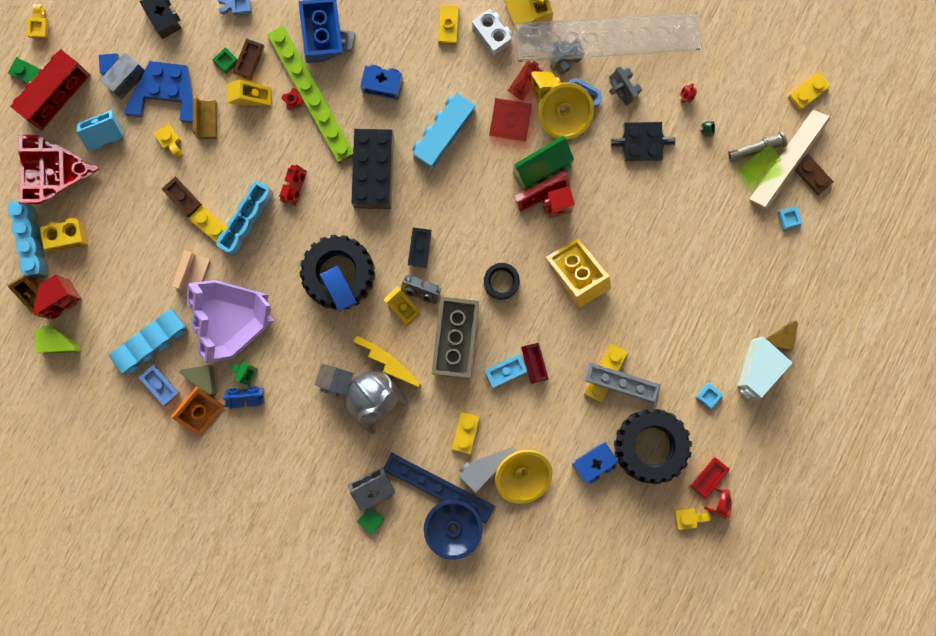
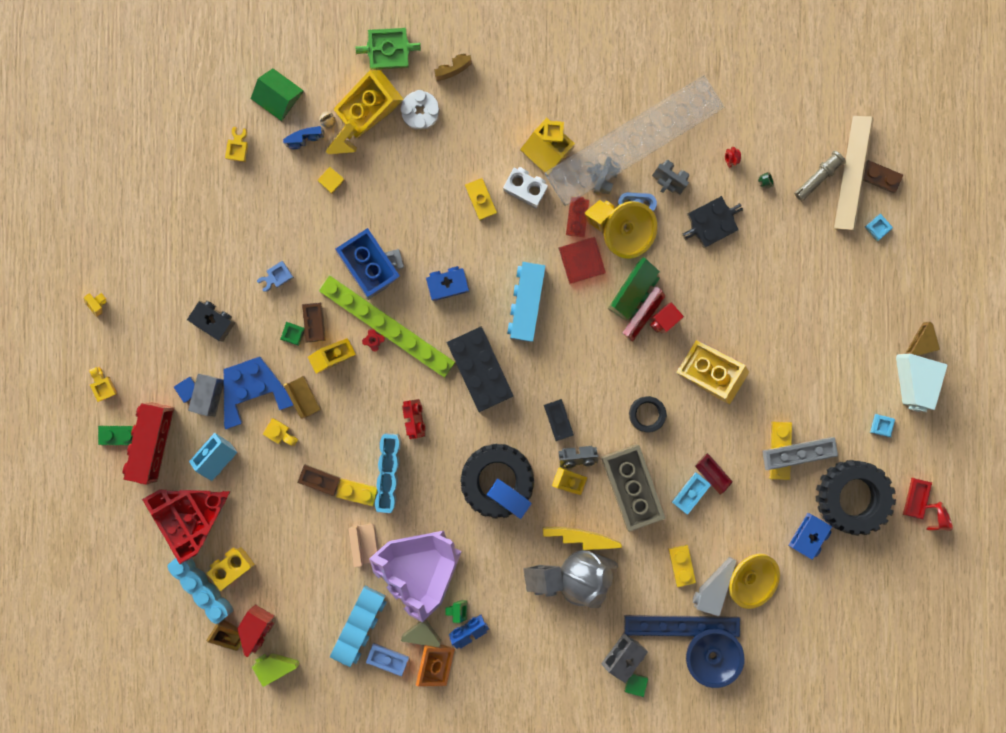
camera: 25 degrees left, 5 degrees up
(688, 518) = (915, 544): yellow plate -> none
(760, 164) = (829, 191): clear neon green tile -> none
(809, 91) = (841, 99): yellow plate -> none

